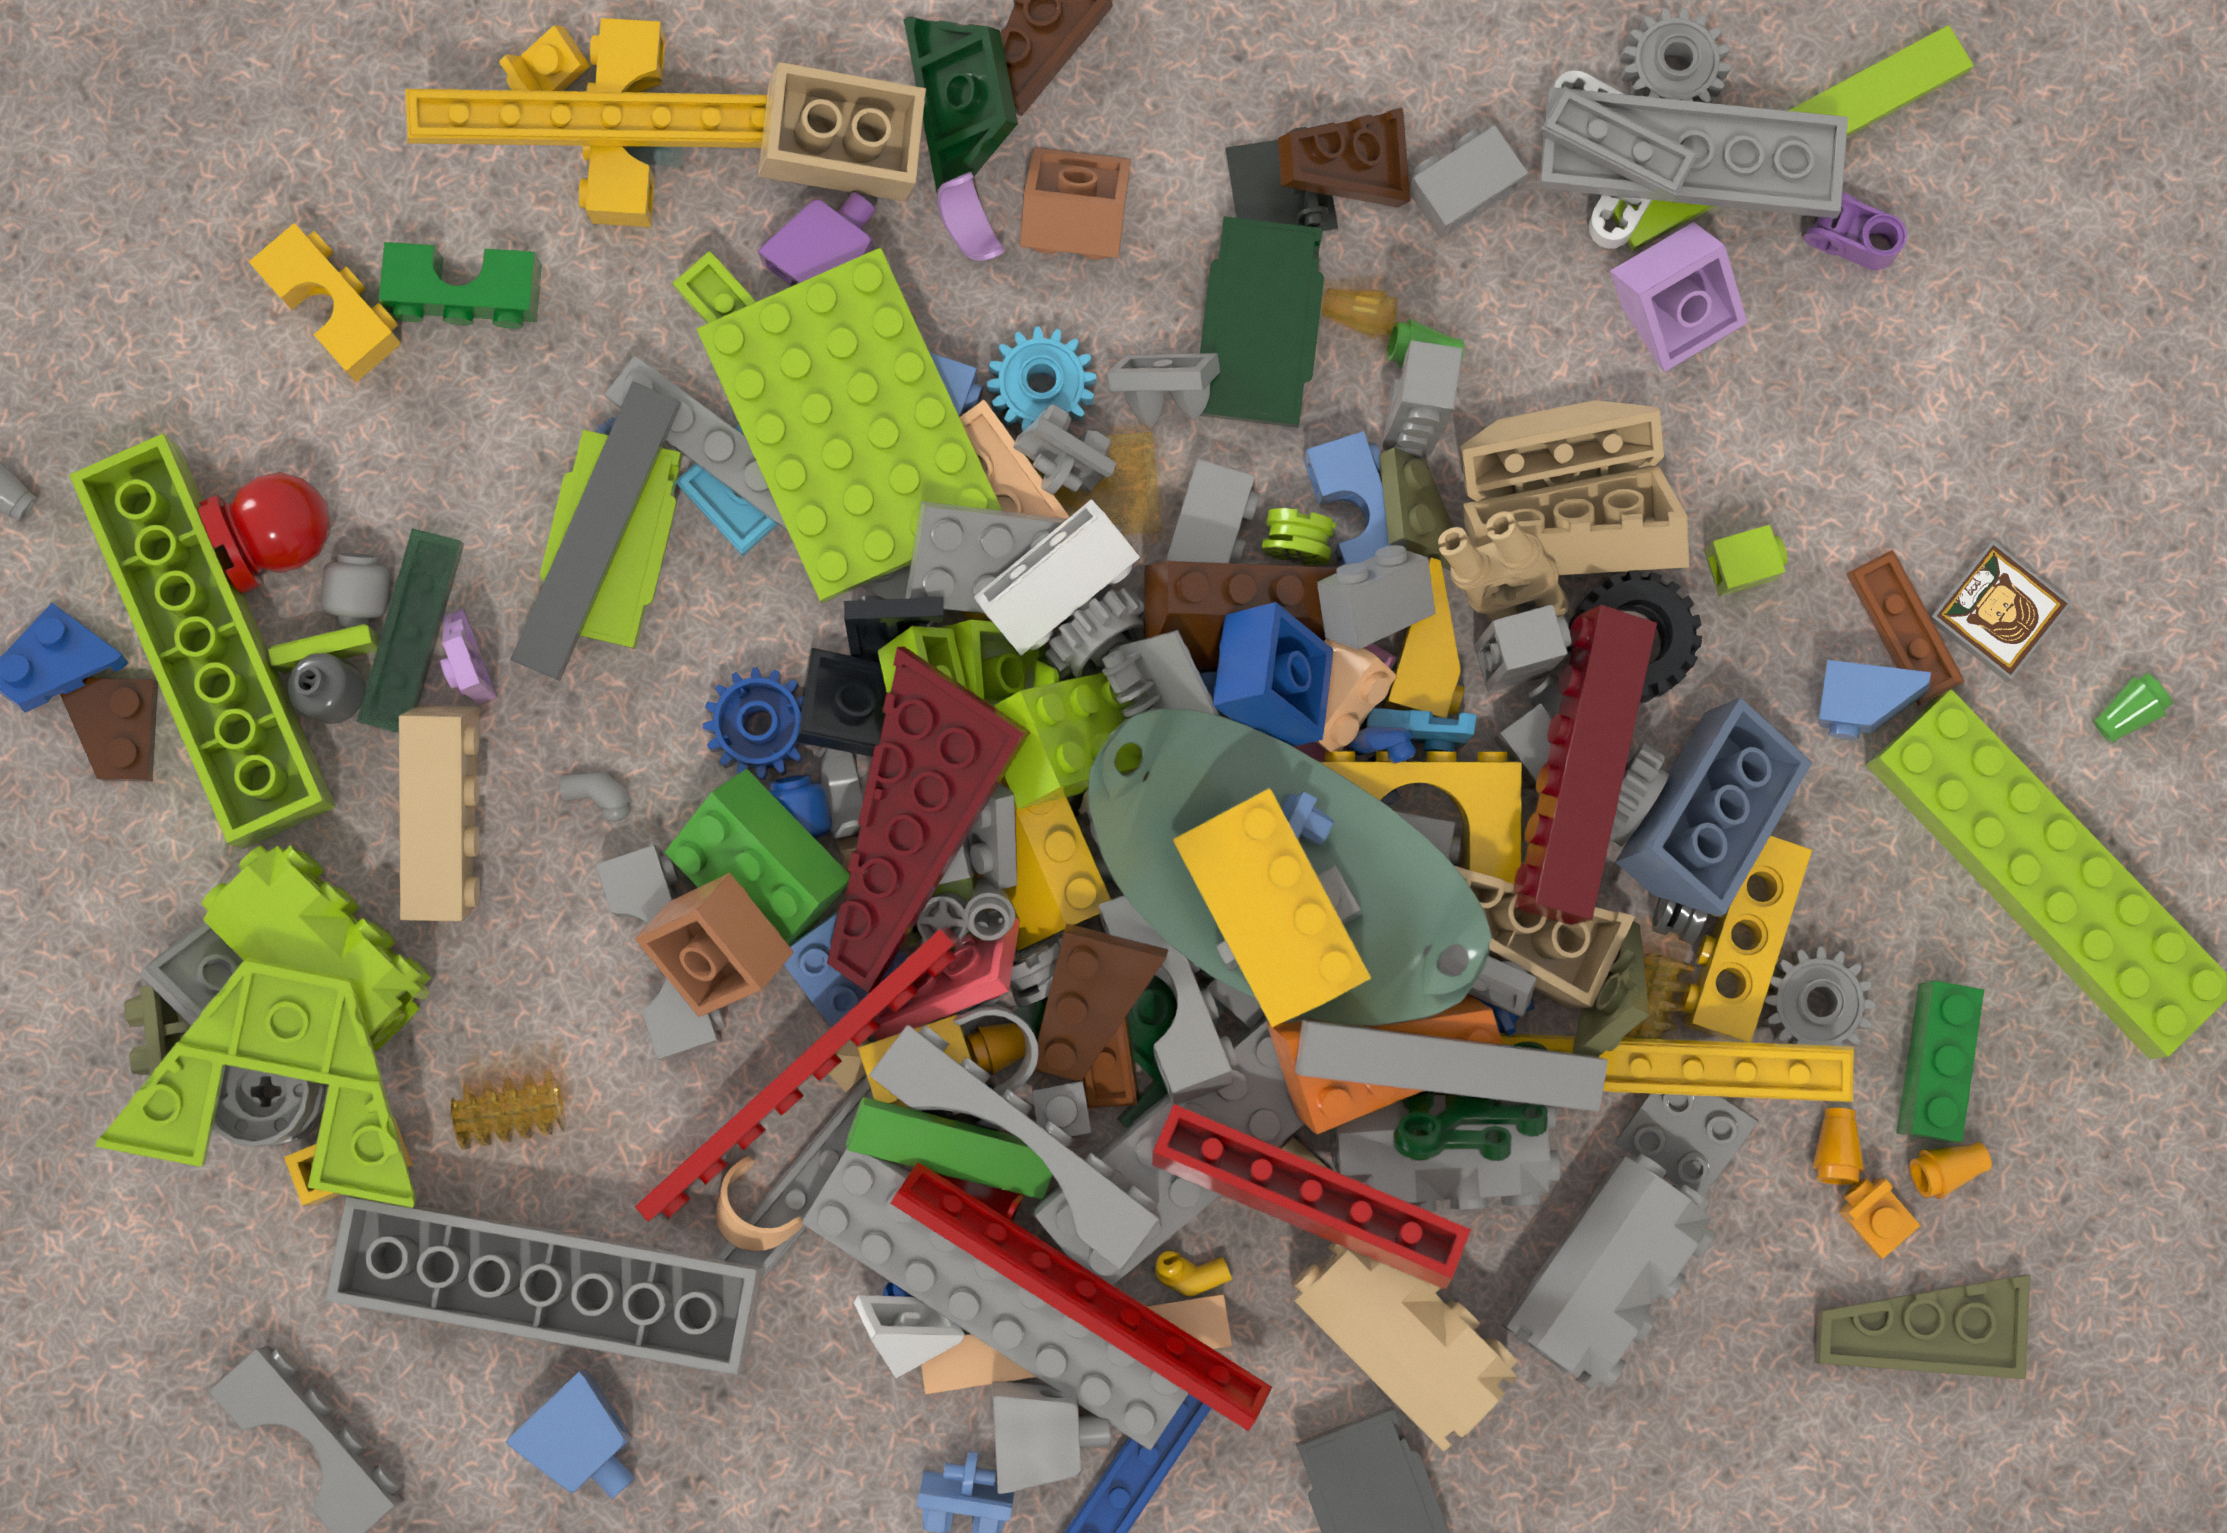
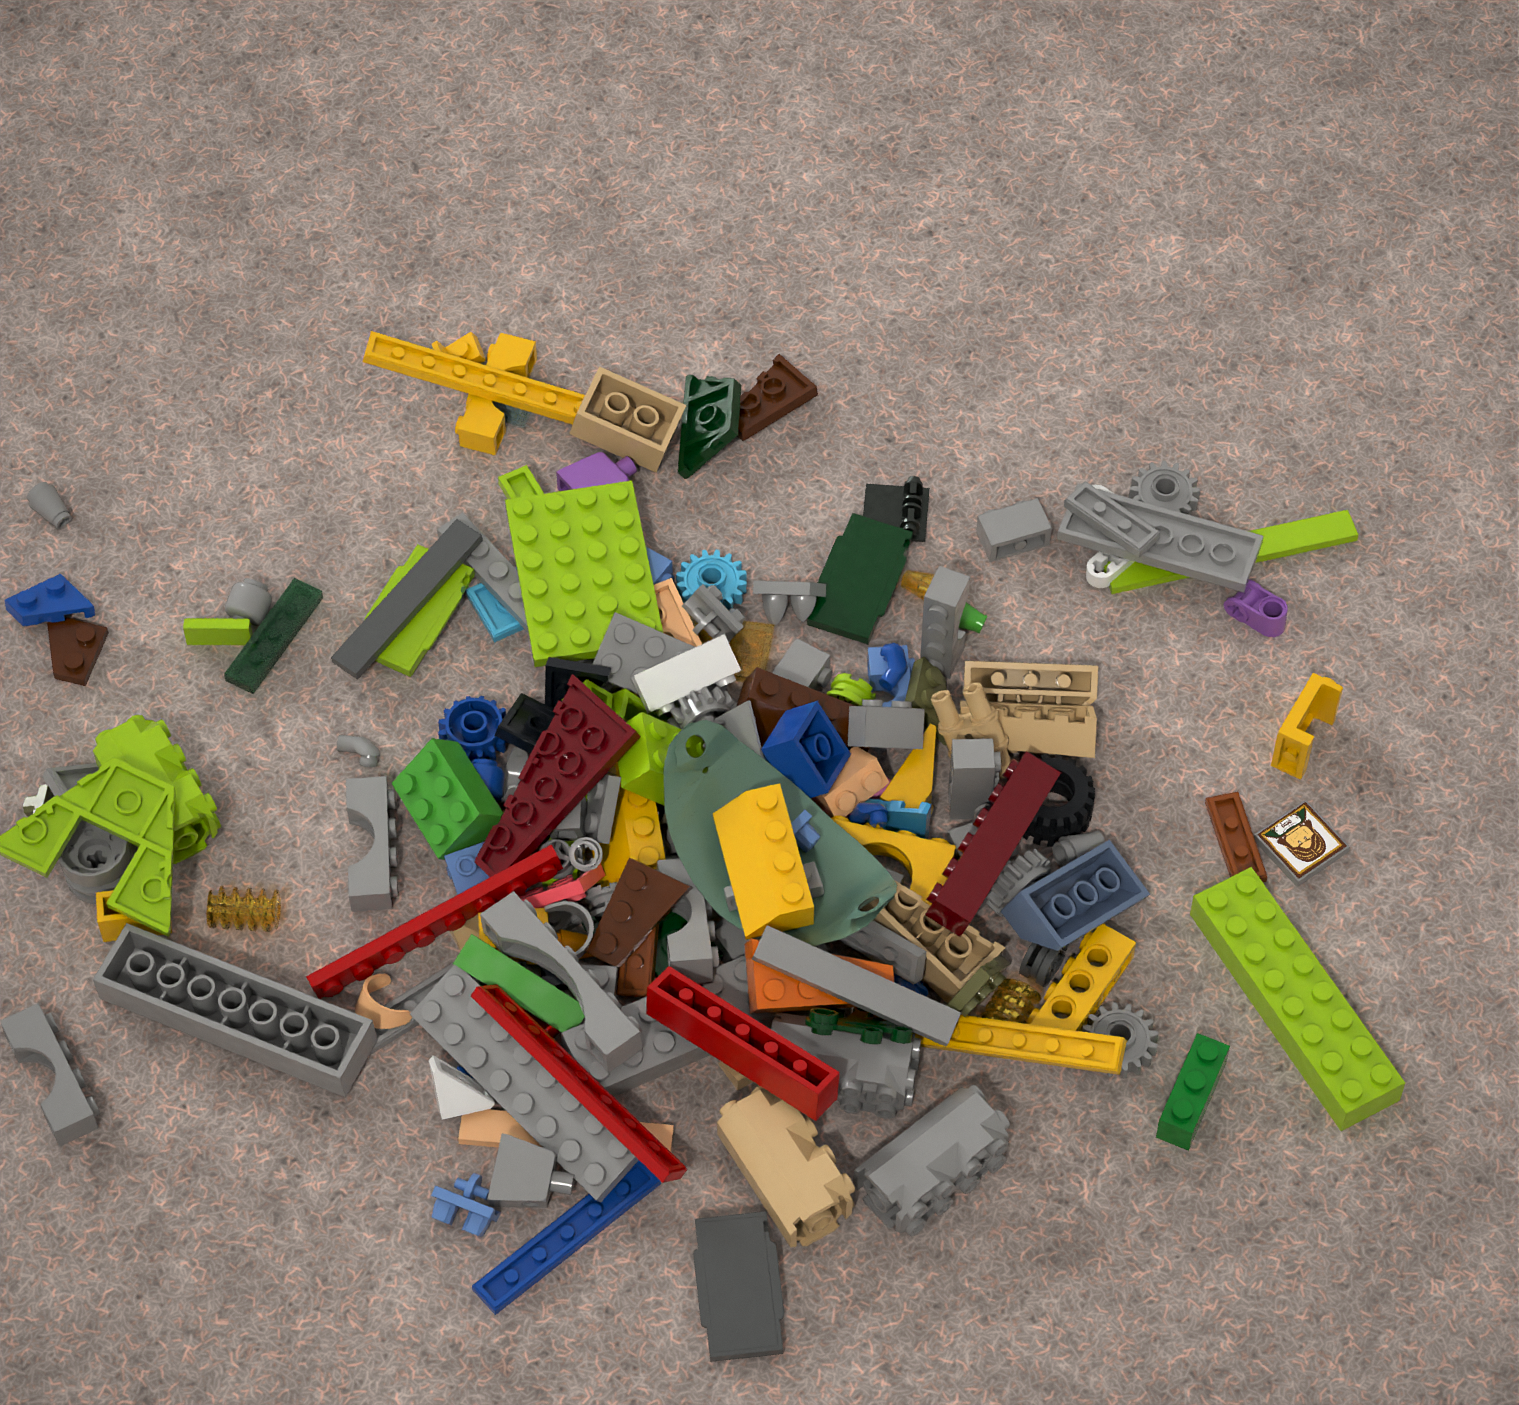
camera: 20 degrees right, 25 degrees down
(202, 643) = (145, 607): lime brick -> none
(270, 526) = (210, 555): red tile -> none
(299, 269) = (276, 429): yellow arch -> none
(326, 688) = (212, 650): dark grey head -> none
(438, 812) = (257, 730): tan wedge -> none
(464, 662) = (301, 654): lavender wing -> none
(502, 291) = (391, 466): green arch -> none
(576, 1438) = (222, 1109): medium blue torso -> none
(714, 945) = (406, 828): nougat brick -> none
(966, 220) = (690, 483): lavender helmet -> none
(1074, 203) = (760, 492): nougat slope -> none
(1187, 1277) = (652, 1111): yellow arm -> none
(1350, 159) = (941, 499): reddish brown wing -> none
(1360, 473) = (897, 664): none -> blue arm
(1680, 295) = (1134, 620): lavender slope -> none
(1686, 704) = (1073, 846): none -> light grey cone
(1688, 1136) = (1018, 1094): light grey hinge -> none
(1746, 560) = (1138, 774): lime brick -> none
(1839, 1148) = (1111, 1133): light orange cone -> none
(1866, 696) = (1197, 865): medium blue slope -> none
(1877, 1215) = (1128, 1178): light orange bracket -> none
(1944, 1330) = (1161, 1262): olive wing -> none
(1946, 1169) = (1183, 1160): light orange cone -> none
(1956, 465) = (1293, 744): none -> yellow panel
(2133, 708) = (1378, 915): bright green cone -> none

